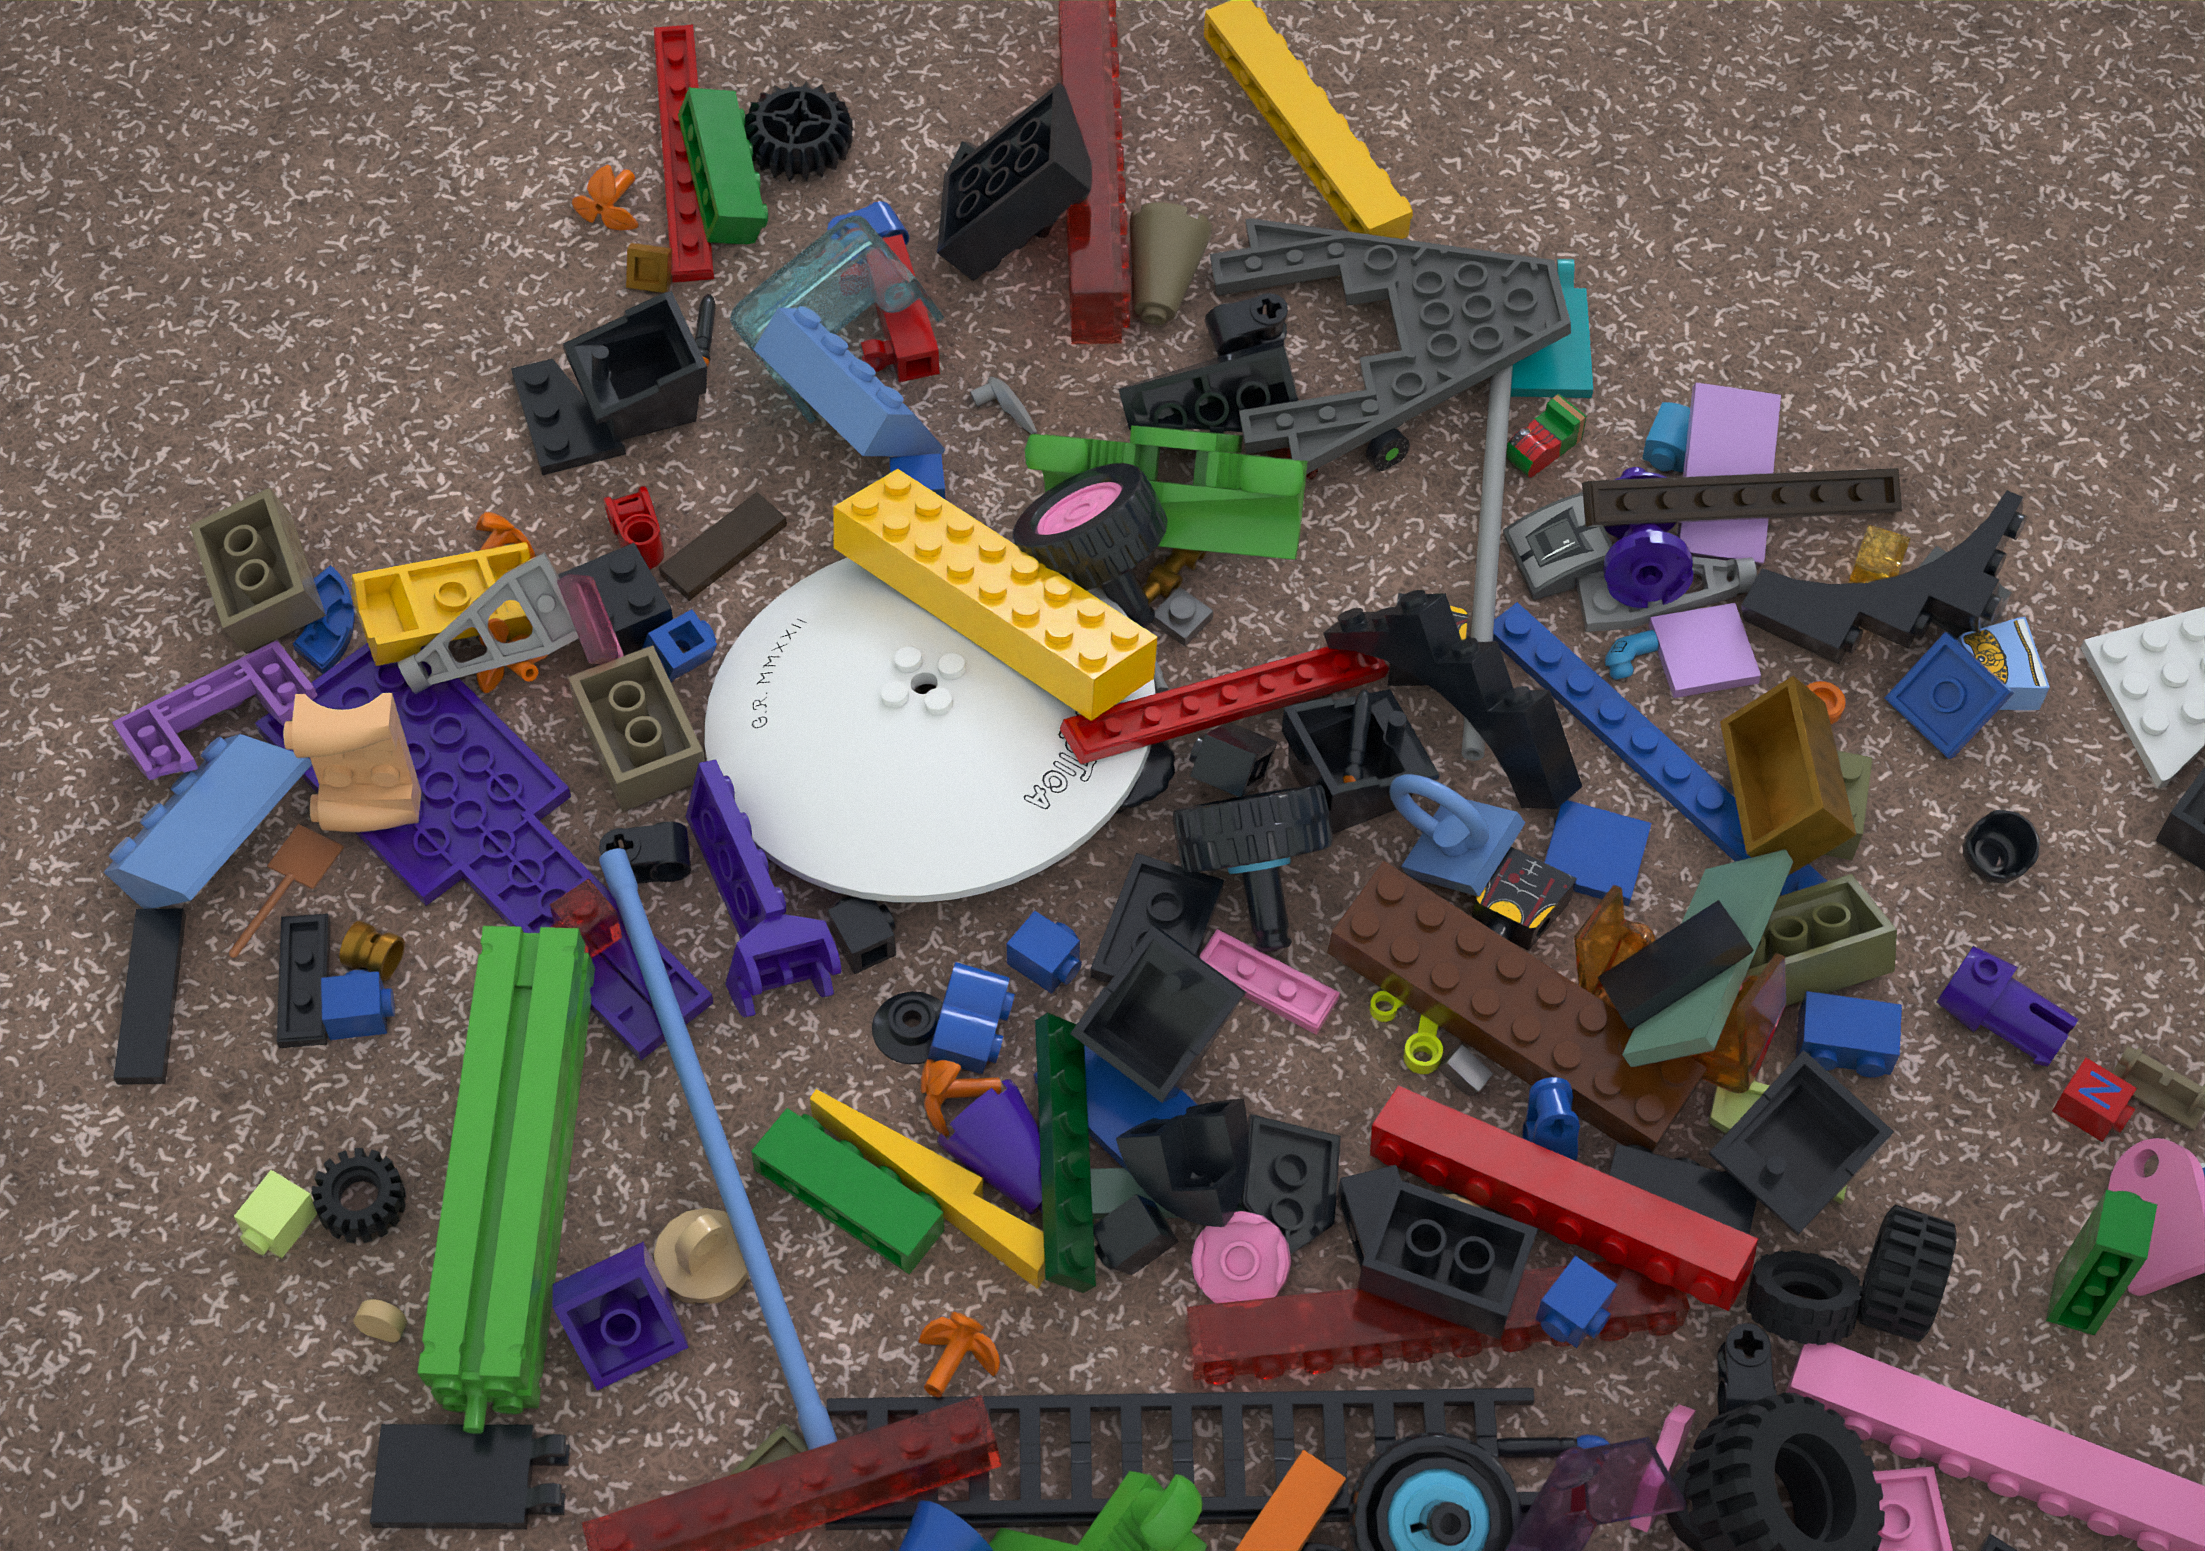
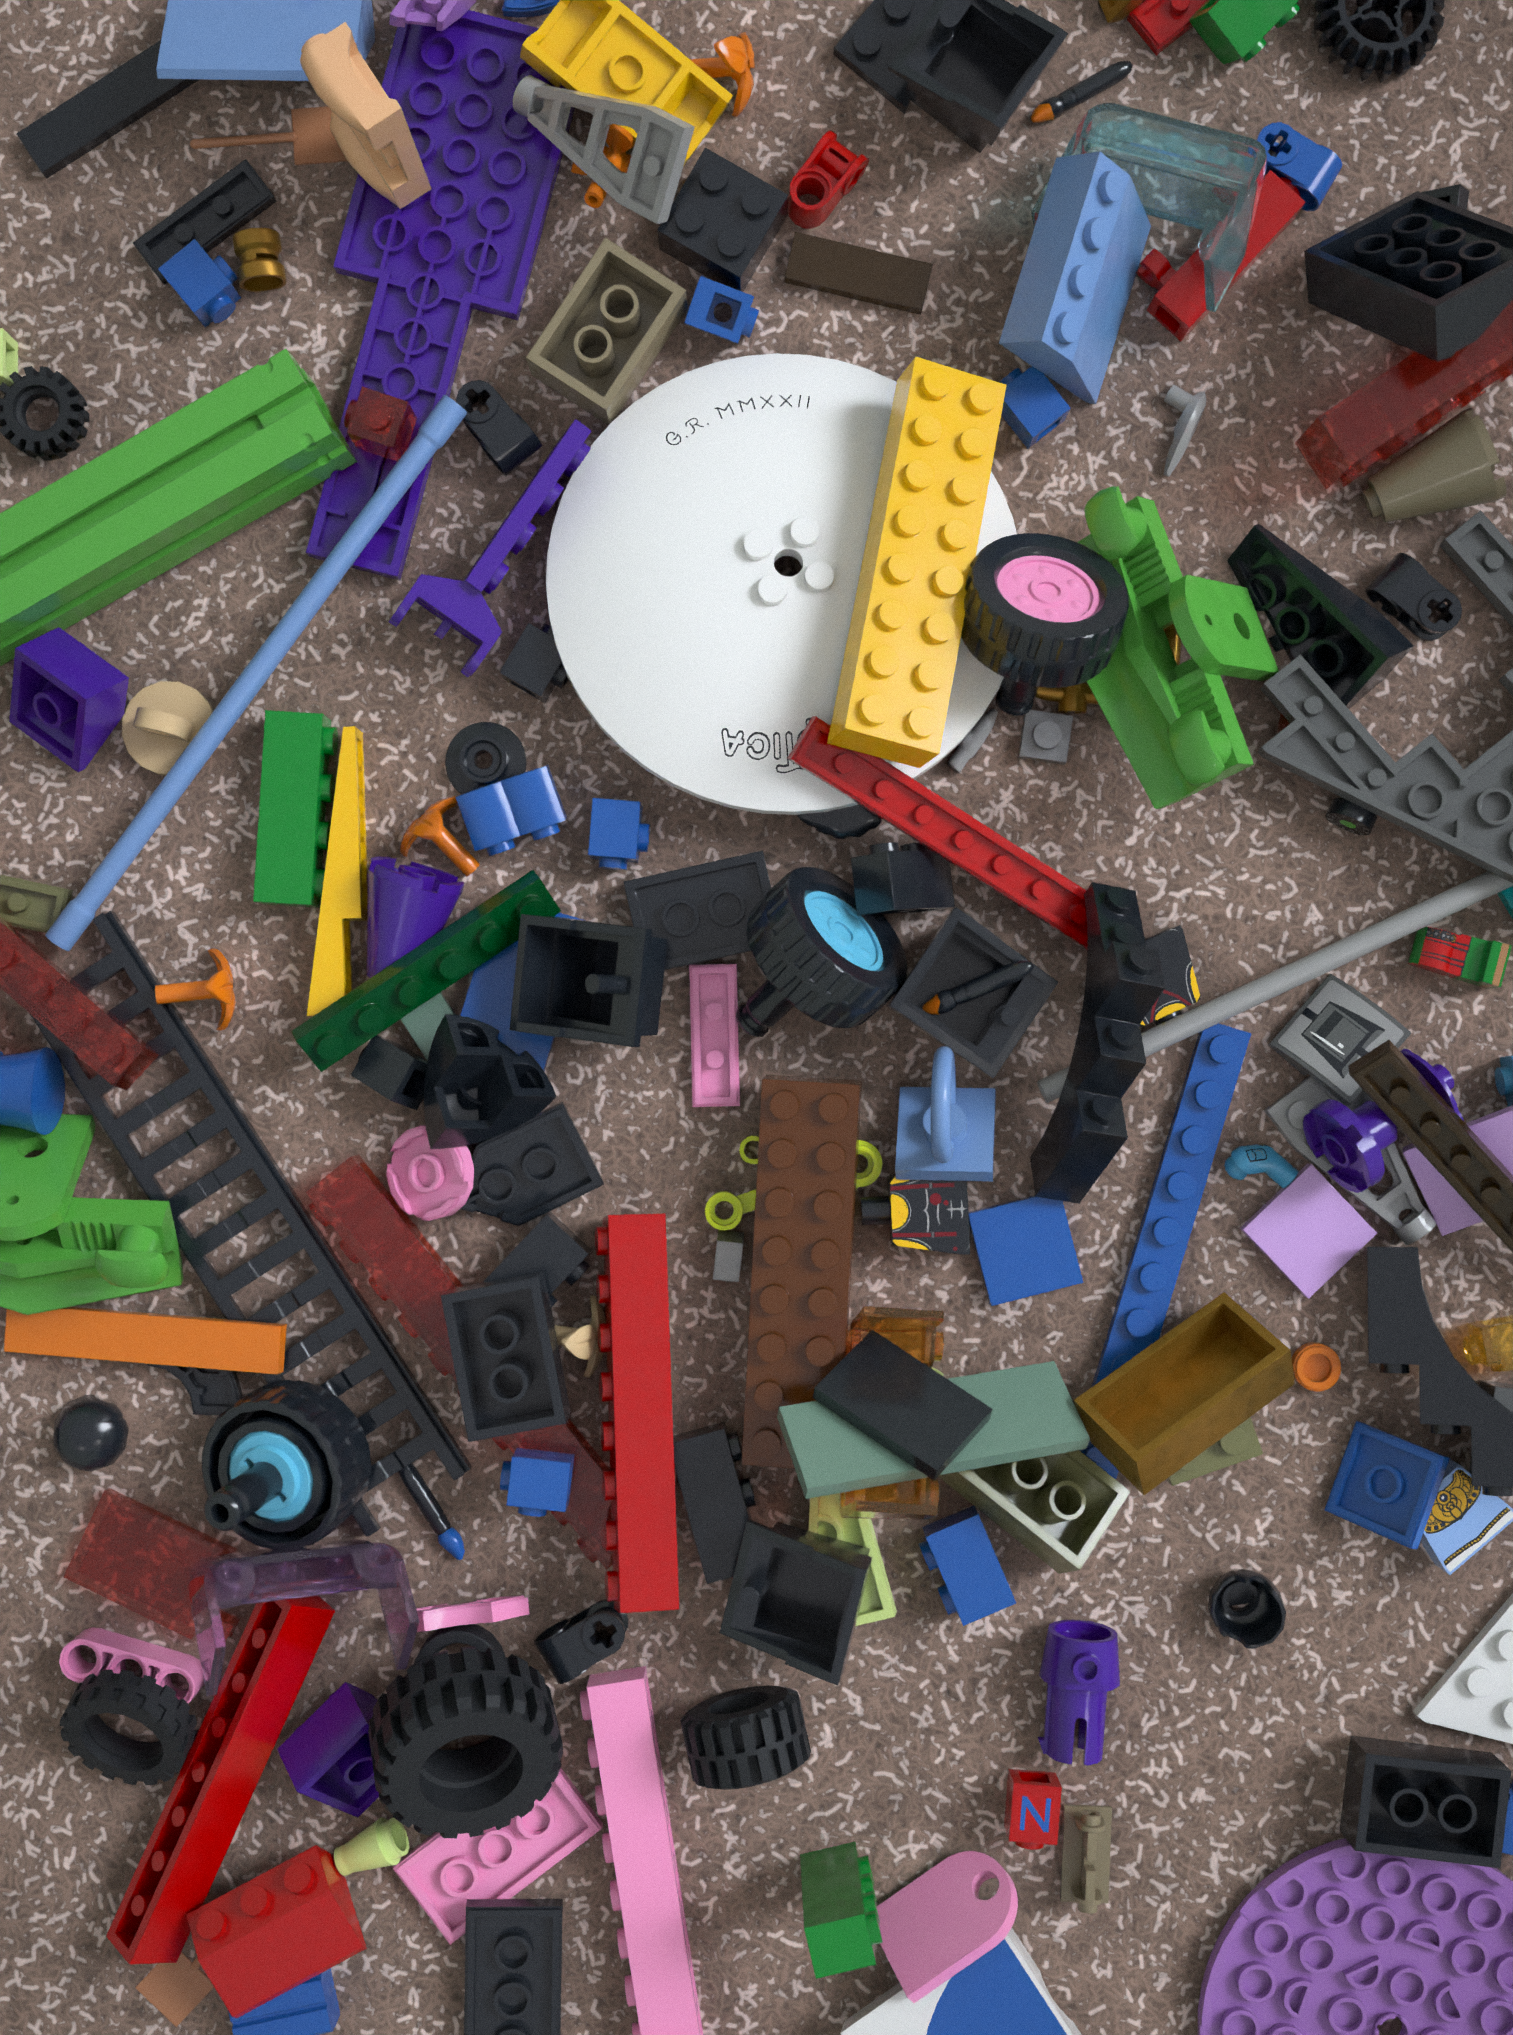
camera: 60 degrees right, 30 degrees up
(590, 618) = (666, 216): clear pink tile -> none
(1550, 1117) = (710, 1362): blue piece -> none
(1816, 1321) = (711, 1663): black tyre -> none

